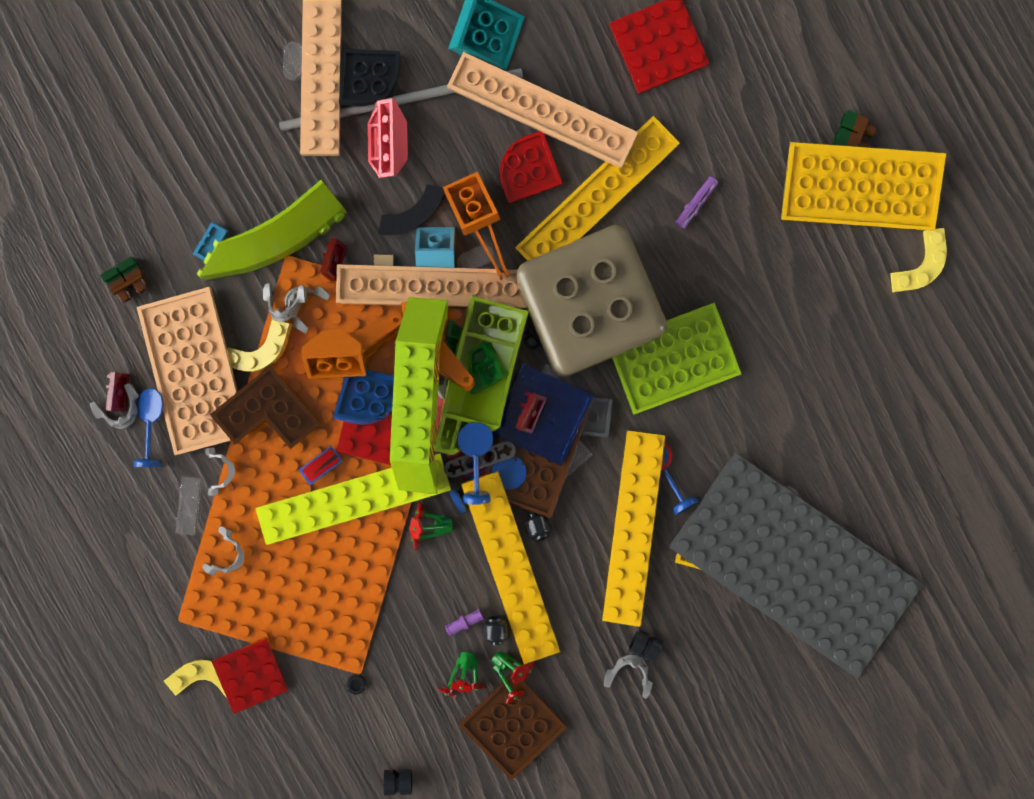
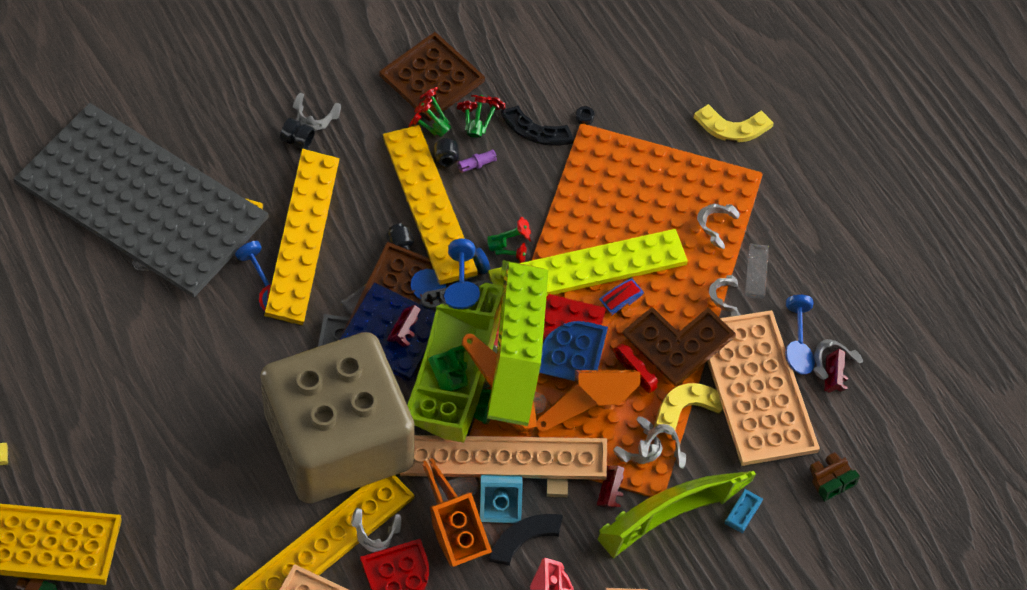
camera: 175 degrees right, 30 degrees down
(249, 675) = (688, 122): red plate -> none
(307, 385) = (630, 362): none -> red plate
(397, 782) = (544, 33): black wheel -> none
(407, 662) = (533, 132): none -> black tile
(566, 212) = (374, 545): none -> light grey helmet
(679, 362) = (228, 387): lime plate -> none
(692, 208) = (209, 540): medium lavender pin -> none

